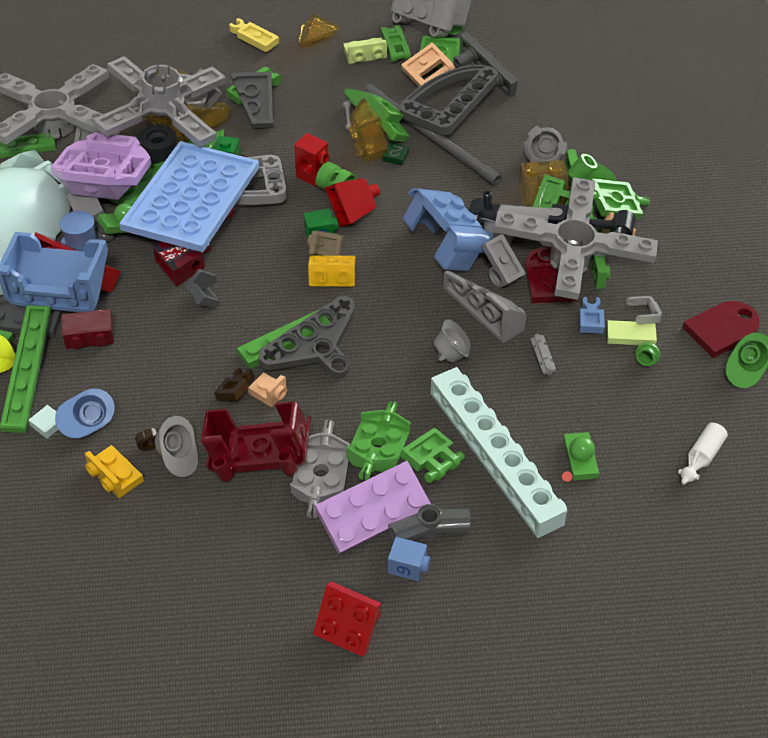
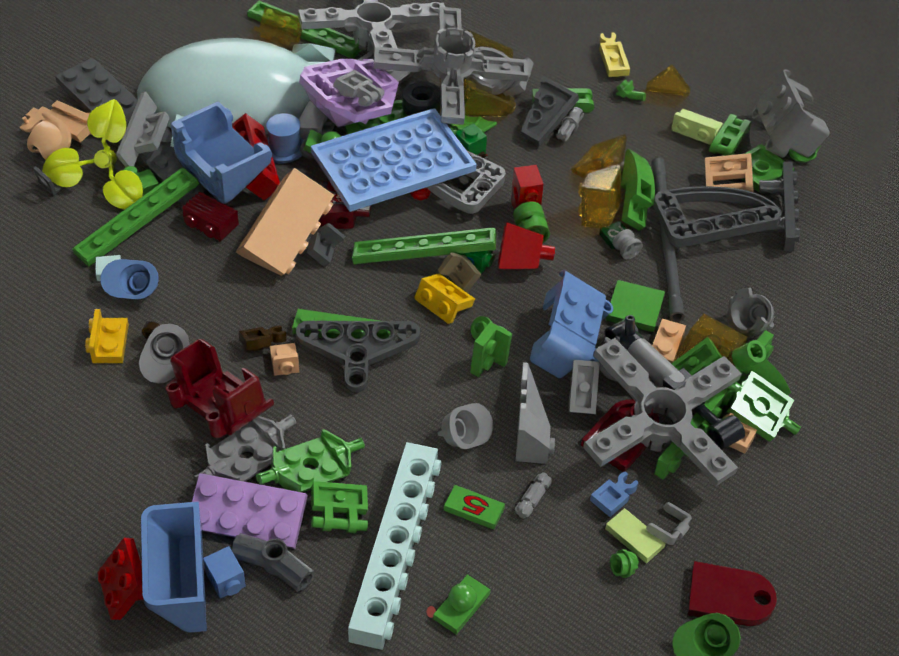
camera: 40 degrees right, 0 degrees up
(115, 154) = (358, 85): none -> light grey plate
(161, 291) = (286, 223): none -> light nougat windscreen
(280, 99) = (570, 124): none -> light grey axle
(281, 242) = (424, 245): none -> bright green tile
(289, 53) = (625, 90): none -> bright green plate
(328, 109) = (601, 156): none -> clear yellow slope
(384, 272) = (479, 325): none -> bright green plate
(384, 571) = (174, 564): none -> medium blue windscreen
(412, 278) = (490, 347): none -> bright green bracket
(413, 153) = (627, 244): none -> light grey wheel
(464, 185) = (638, 301): none -> bright green tile
(506, 195) = (669, 339): none -> light nougat plate
(515, 390) = (474, 507): none -> bright green tile

